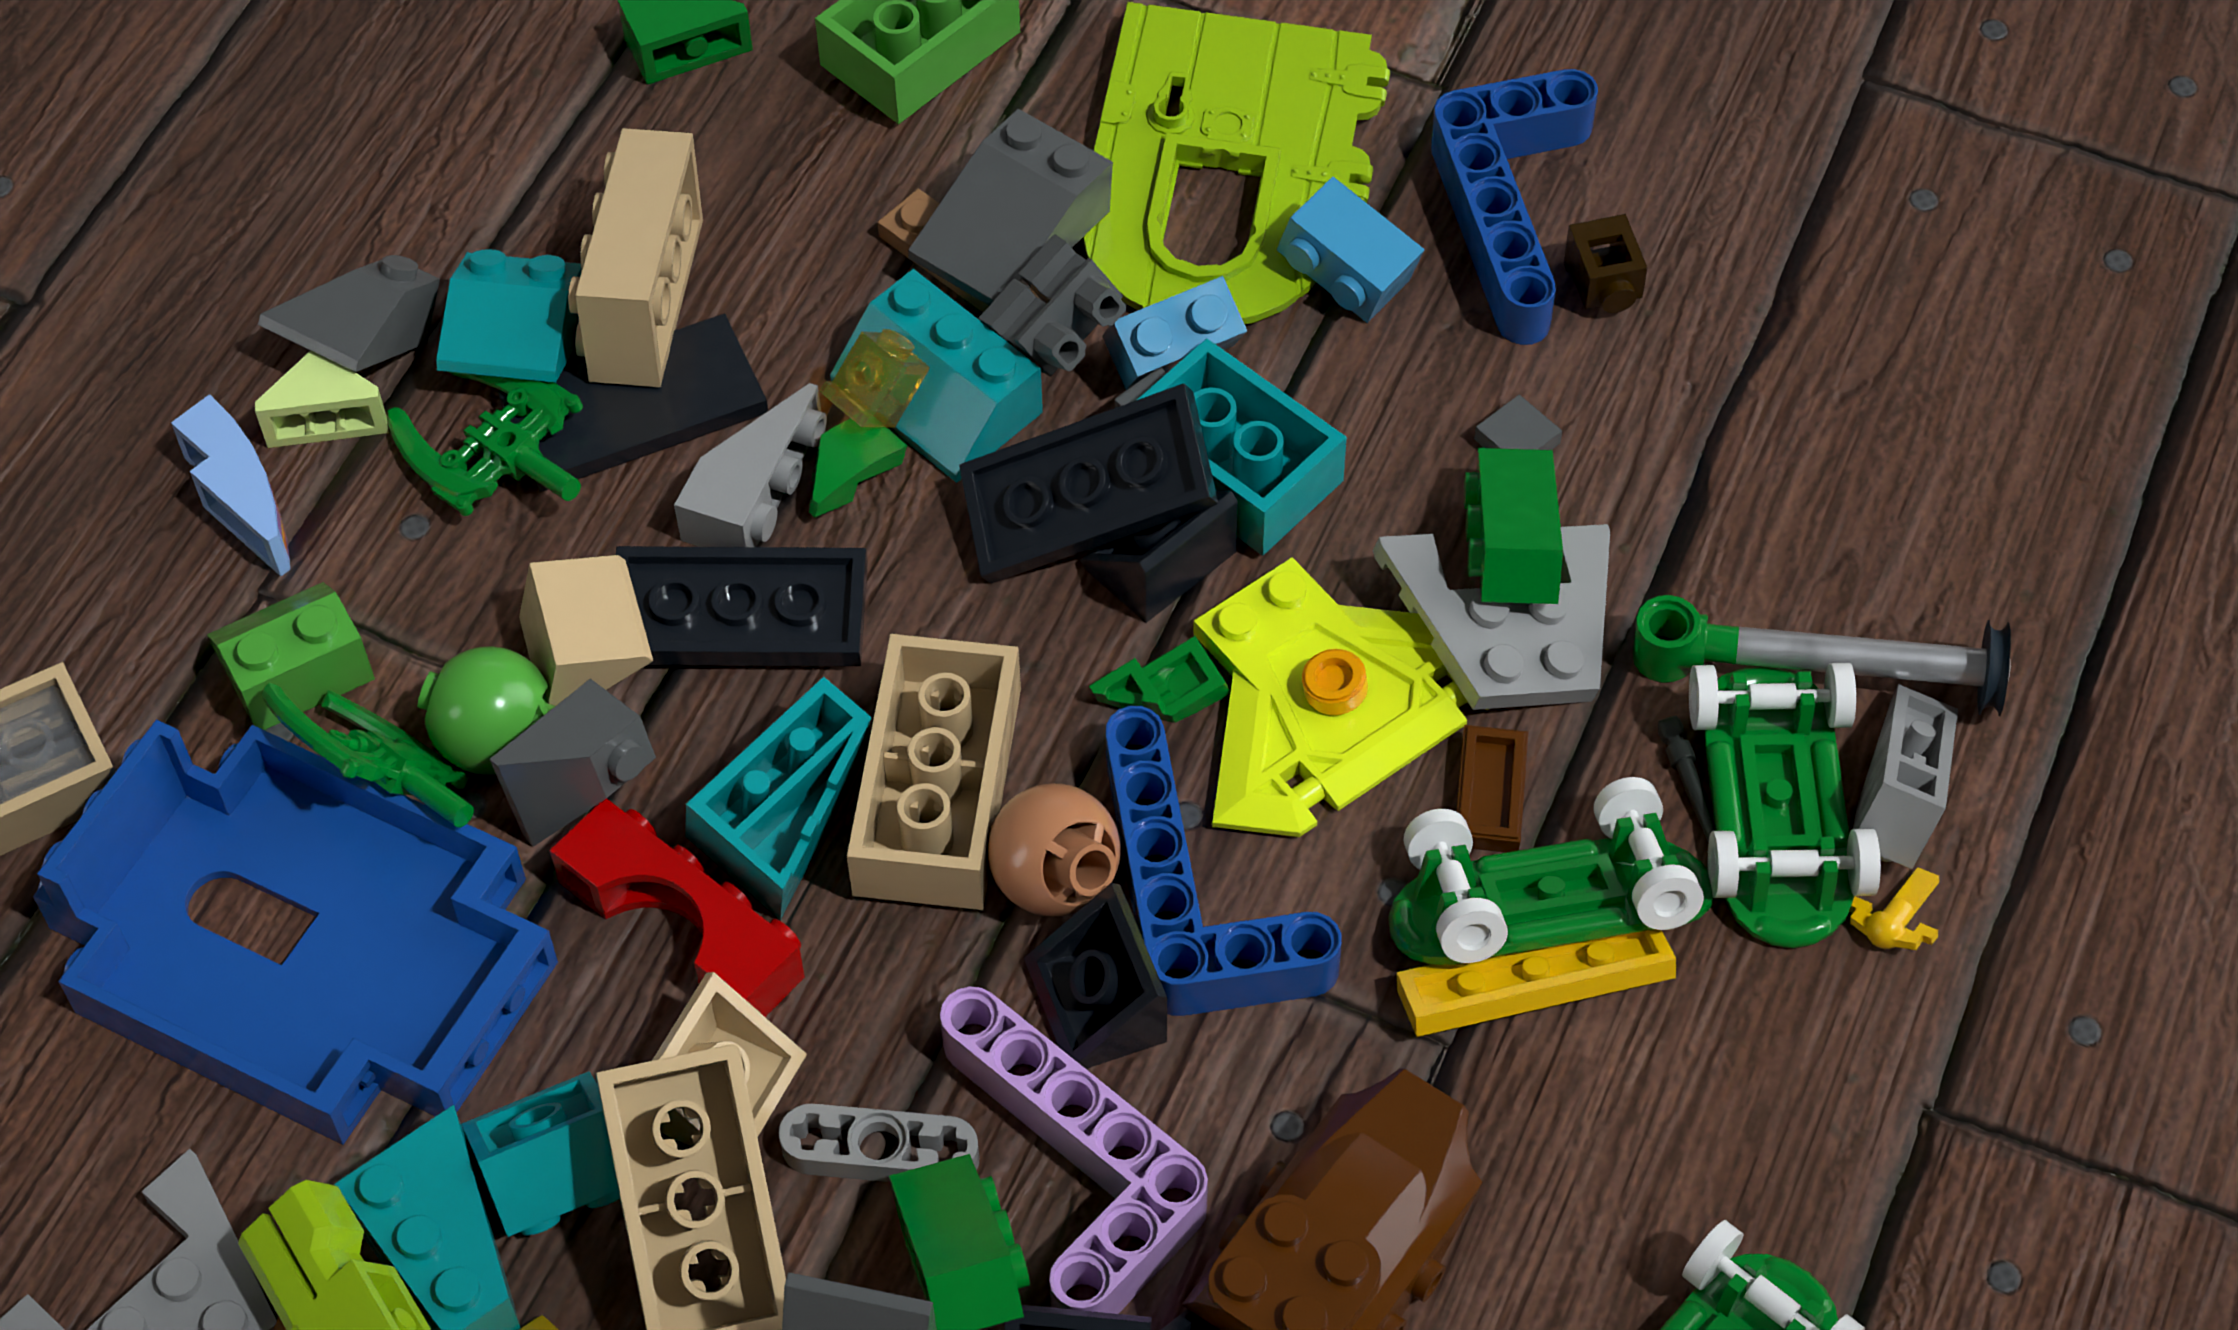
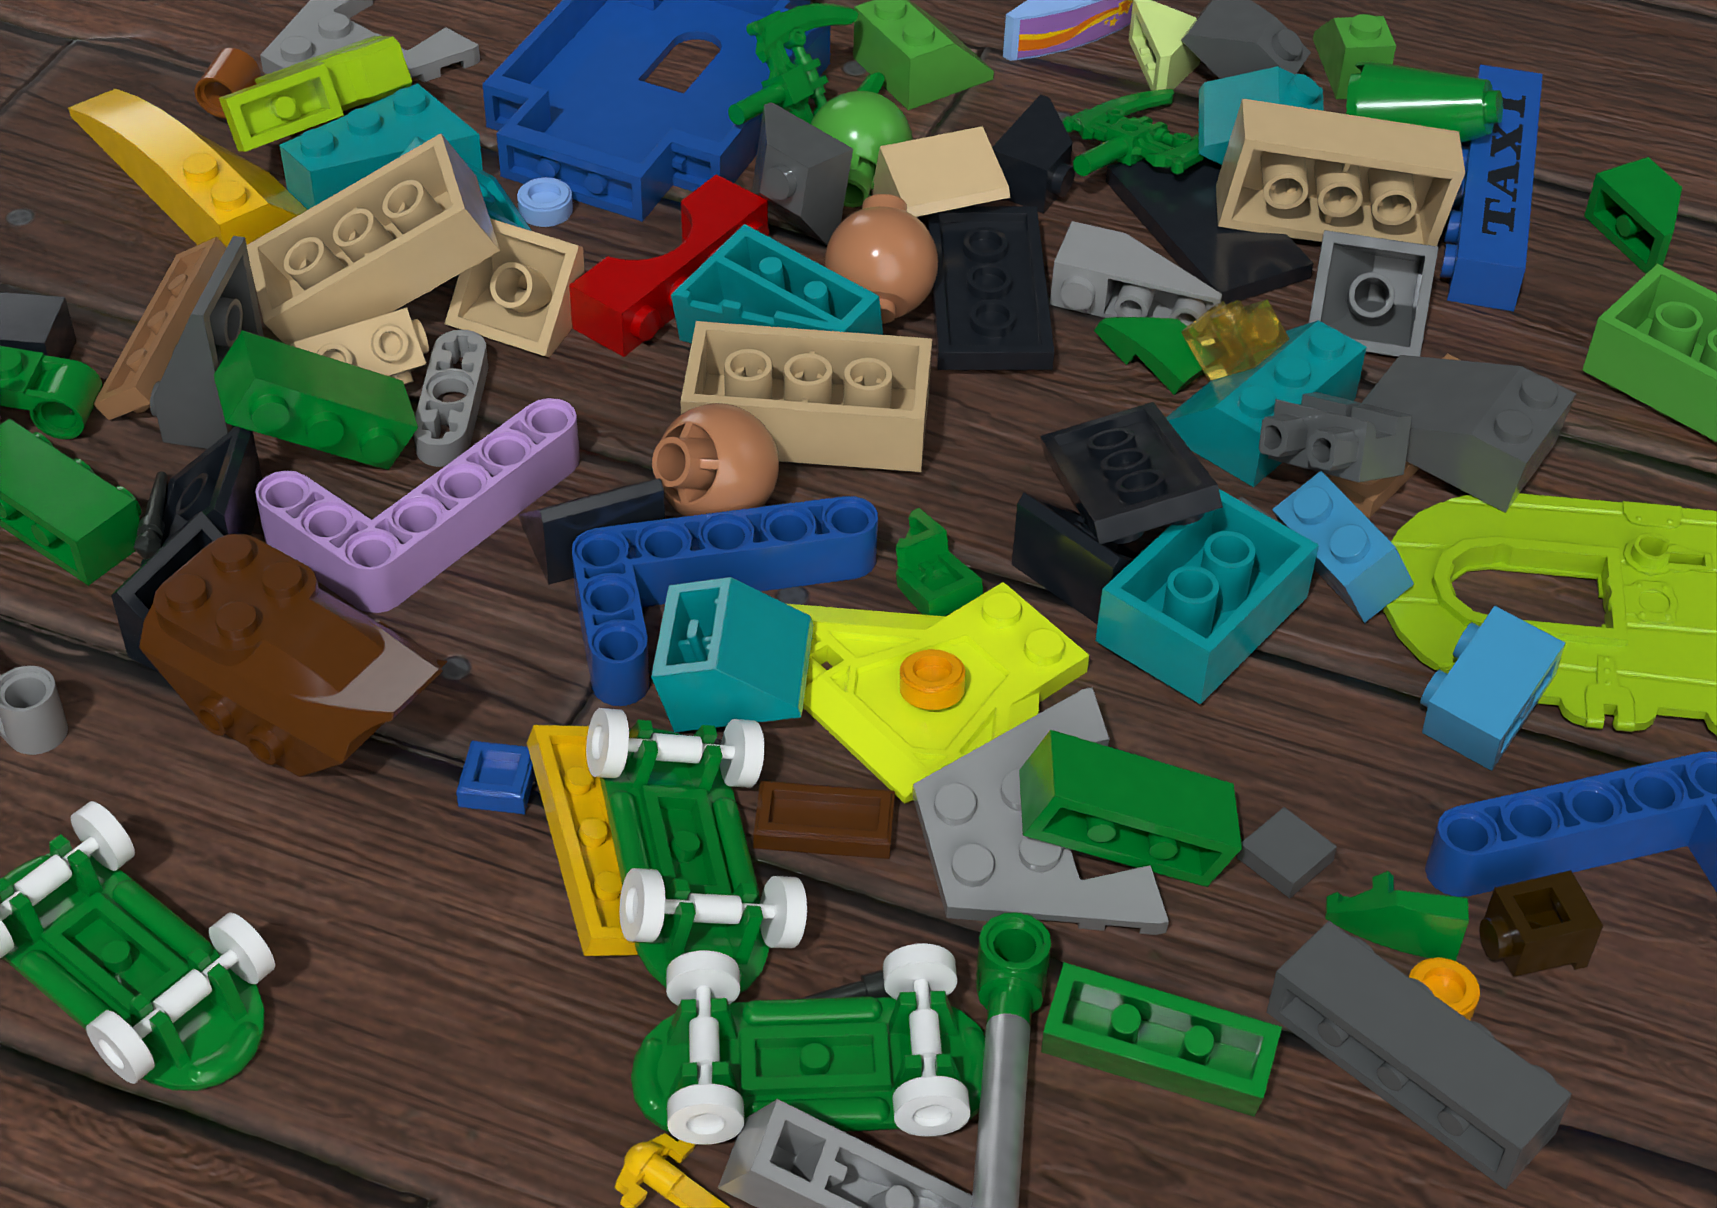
camera: 85 degrees right, 10 degrees down
(357, 225) = (1349, 41): none -> bright green slope
(509, 534) = (1036, 156): none -> black slope
(520, 1063) = (545, 202): none -> light blue tile
(531, 173) = (1424, 98): none -> green cone
(575, 126) = (1495, 199): none -> blue brick
(725, 686) = (886, 254): none -> nougat brick
(797, 258) = (1374, 291): none -> dark grey slope
(833, 1224) = (380, 344): none -> tan brick
(1320, 845) = (730, 655): none -> teal slope
(1450, 1065) = (496, 778): none -> blue tile
(1590, 371) = (1402, 919): none -> green slope
(1661, 348) = (1450, 983): none -> light orange tile
(1734, 367) = (1418, 1053): none -> dark grey brick
(1754, 531) = (1160, 1039): none -> green brick

